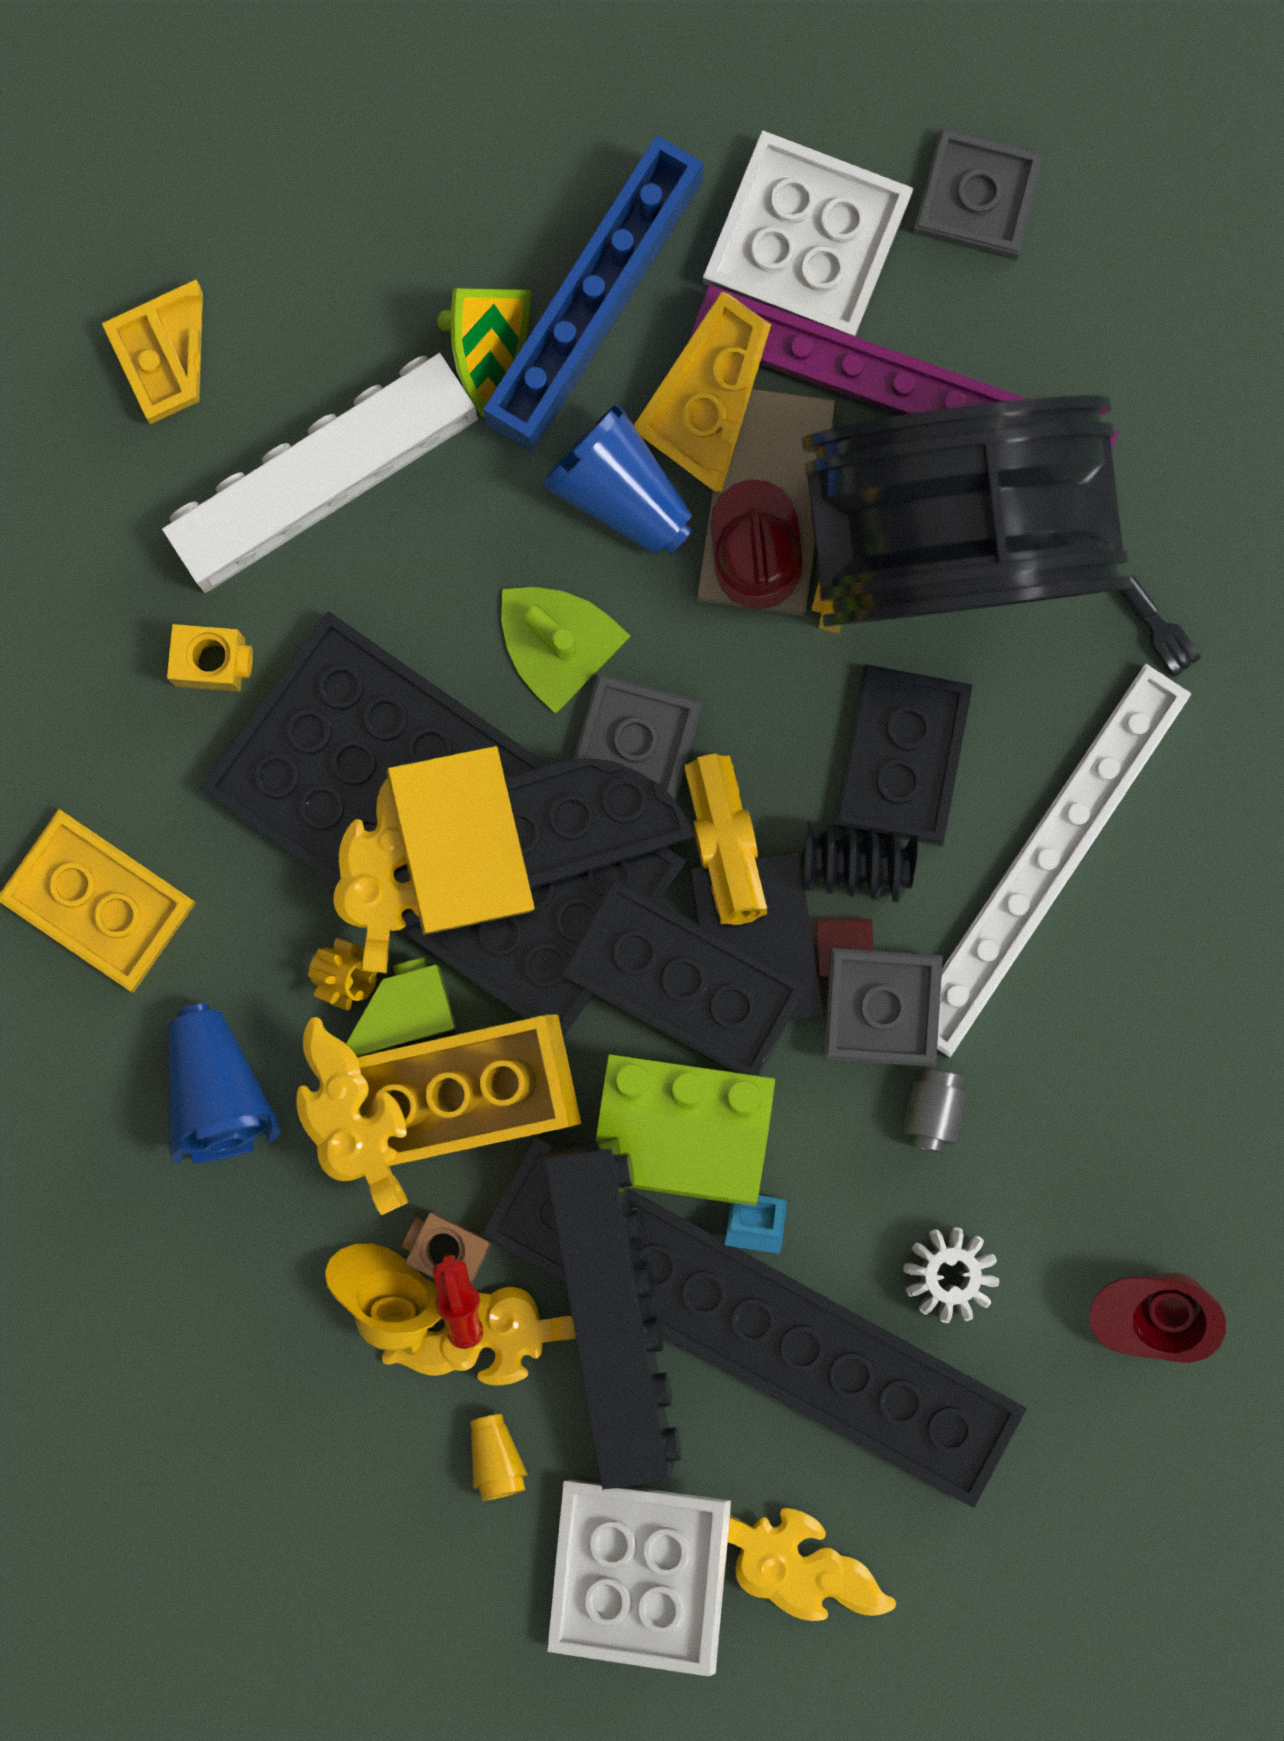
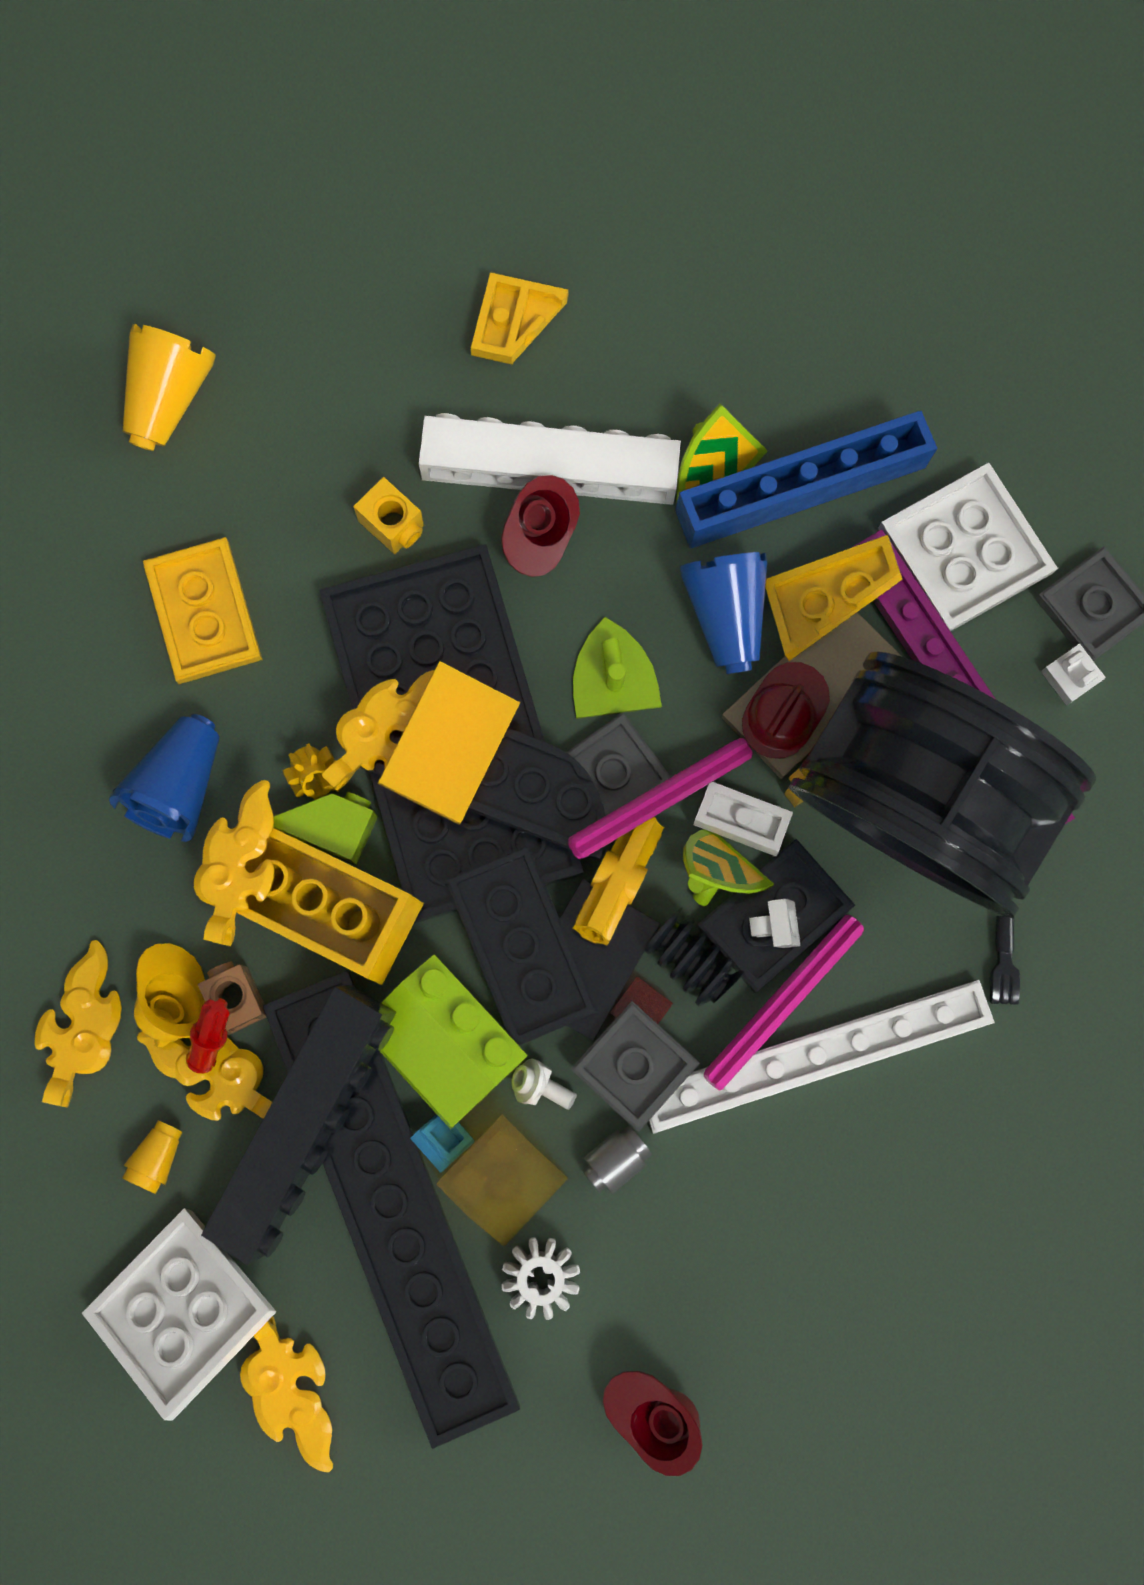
camera: 30 degrees right, 5 degrees down
(338, 1405) = (86, 1042): none -> yellow piece
(368, 550) = (540, 525): none -> dark red piece
(704, 730) = (659, 798): none -> dark pink axle
(797, 1099) = (533, 1080): none -> white plate
(798, 685) = (743, 818): none -> white plate
(814, 751) = (717, 865): none -> shield
(842, 1214) = (502, 1180): none -> clear yellow slope
(916, 761) = (780, 924): none -> white tile
(976, 833) = (783, 1002): none -> dark pink axle
(1009, 283) = (1073, 674): none -> white tile

